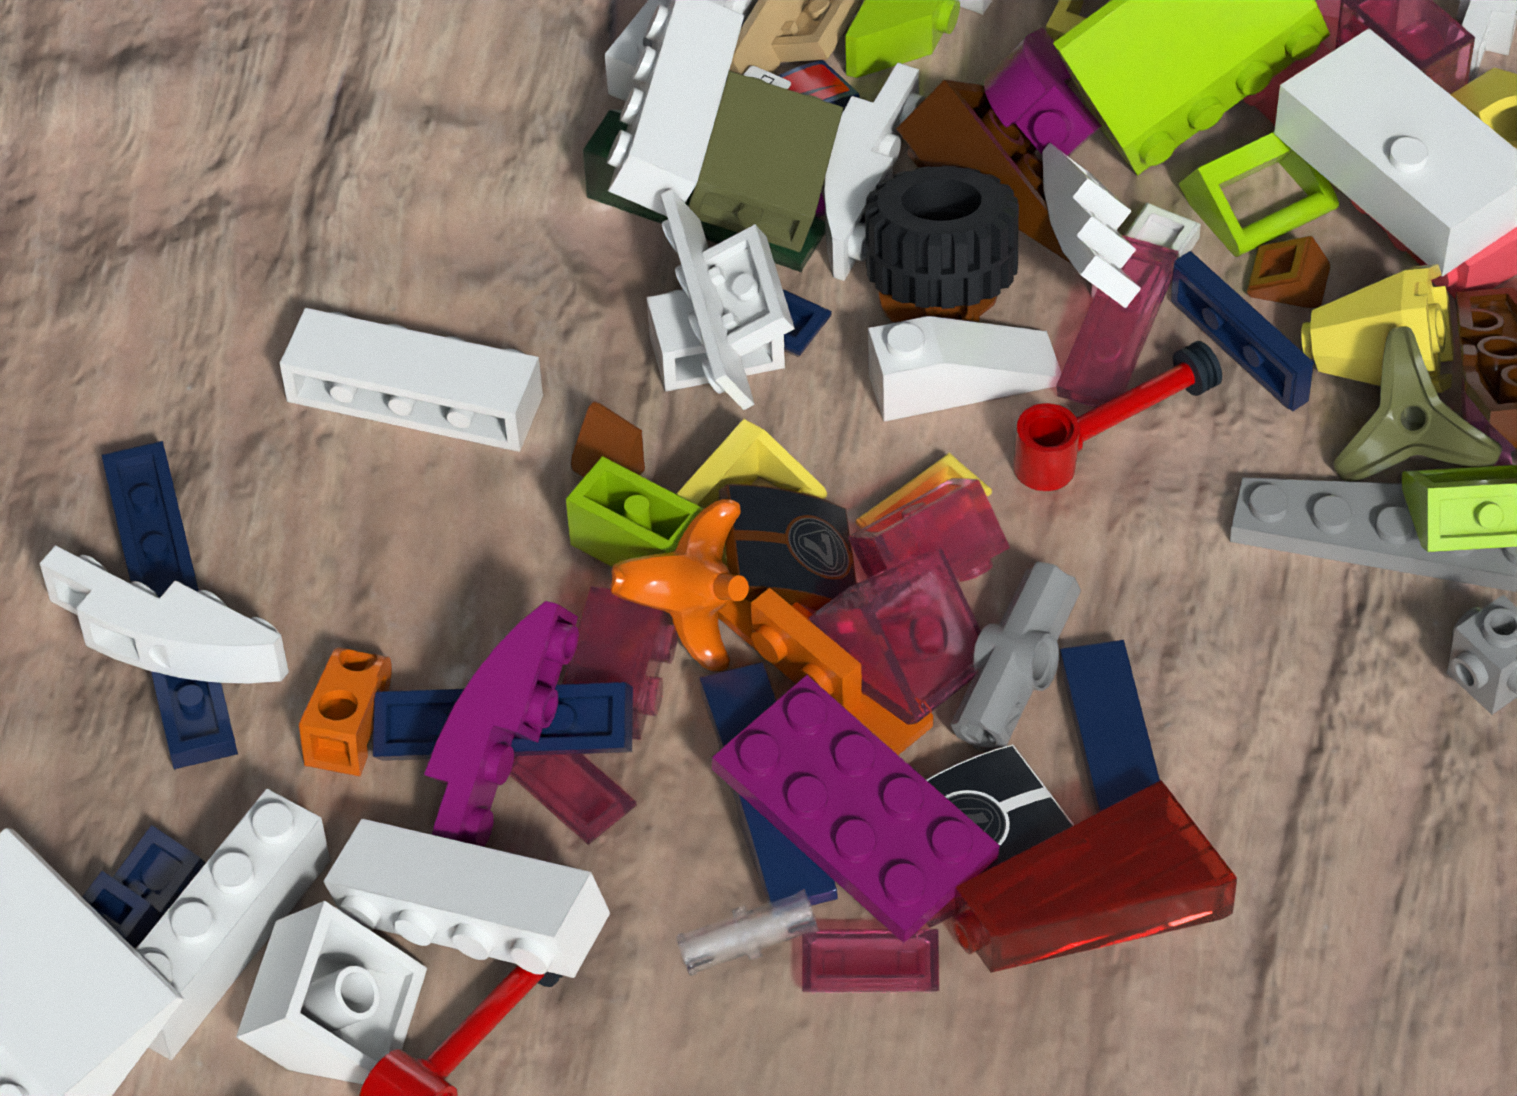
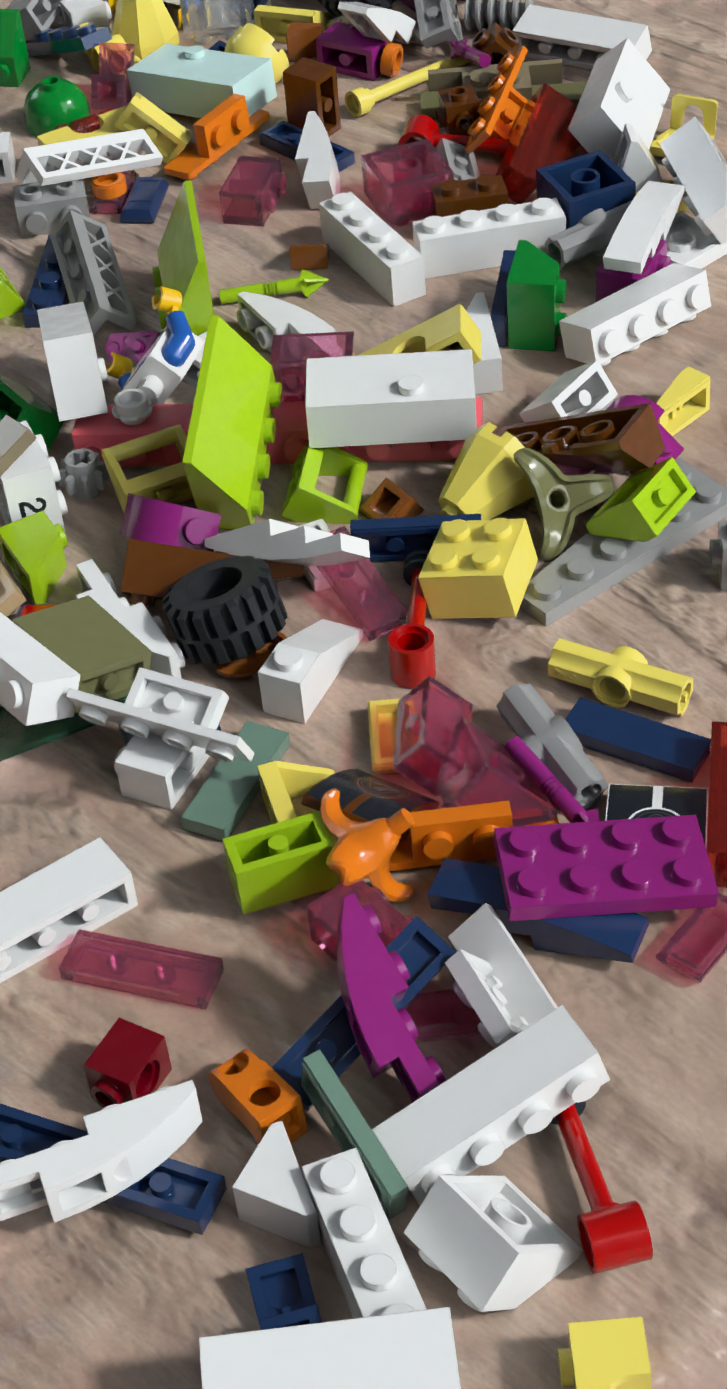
camera: 50 degrees left, 10 degrees down
(281, 765) = (274, 1193): none -> white slope
(298, 580) = (127, 1064): none -> dark red brick
(354, 798) = (353, 1131): none -> sand green tile
(435, 510) = (142, 969): none -> clear pink tile
(607, 436) = (195, 852): dark orange slope -> none
(625, 819) = (496, 978): none -> white bracket
(747, 932) = (638, 980): clear pin -> none
(783, 408) = (234, 785): none -> sand green tile
(930, 754) = (548, 782): none -> magenta piece
(1187, 658) = (620, 677): none -> light yellow piece
(1228, 418) = (478, 568): none -> light yellow brick

